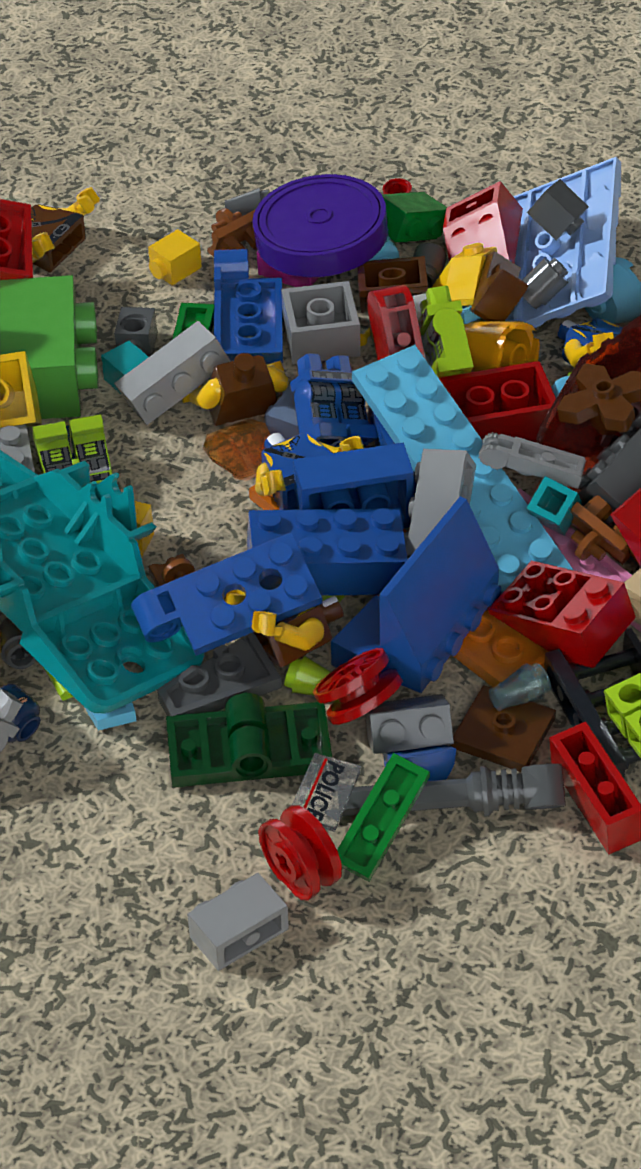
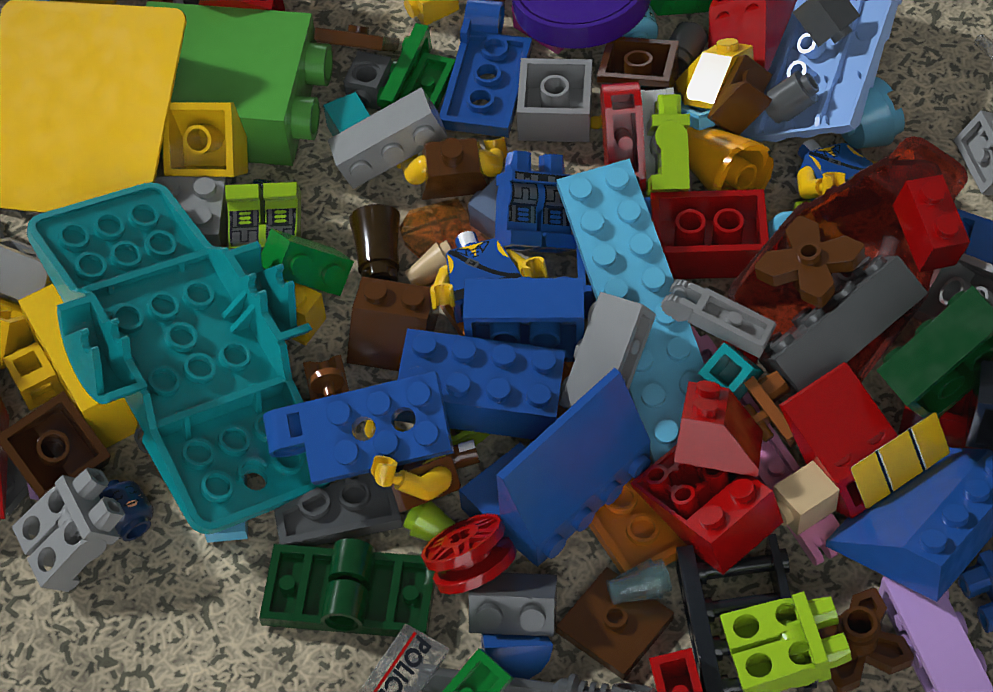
camera: 15 degrees right, 10 degrees up
(115, 297) = (356, 37): none -> reddish brown plate
(148, 483) = (307, 262): none -> green brick
(166, 320) = (402, 70): none -> green plate
(185, 459) = (376, 240): none -> dark brown plant
(217, 521) = (381, 321): none -> reddish brown slope
(243, 473) = (427, 266): none -> tan cone
(556, 546) = (718, 431): none -> red slope

